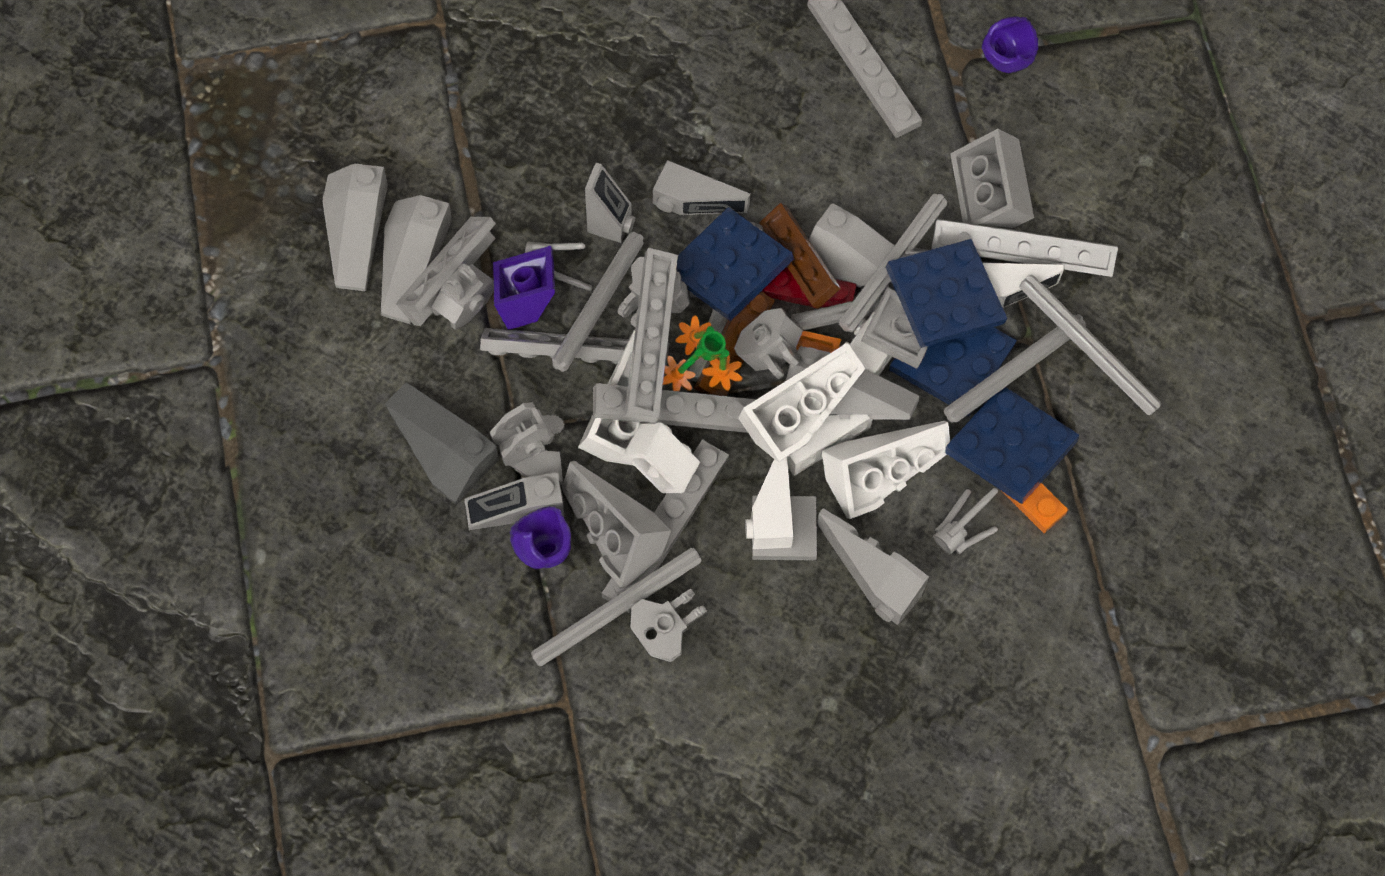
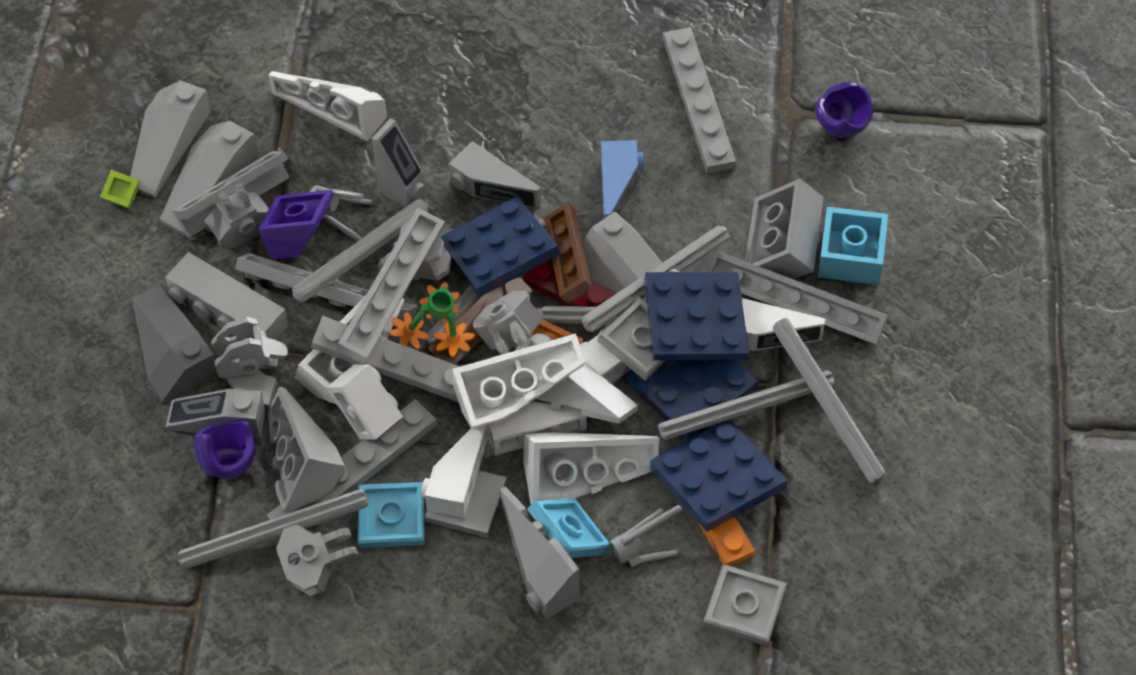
camera: 20 degrees right, 10 degrees down
(331, 292) = (120, 189): none -> lime plate
(478, 382) = (222, 297): none -> light grey brick
(521, 150) = (337, 103): none -> white wedge
(724, 561) = (393, 516): none -> medium azure tile
(815, 155) = (619, 173): none -> medium blue slope
(895, 532) = (570, 527): none -> medium azure tile
(1063, 183) = (853, 245): none -> medium azure brick
(1074, 563) = (745, 605): none -> light grey tile

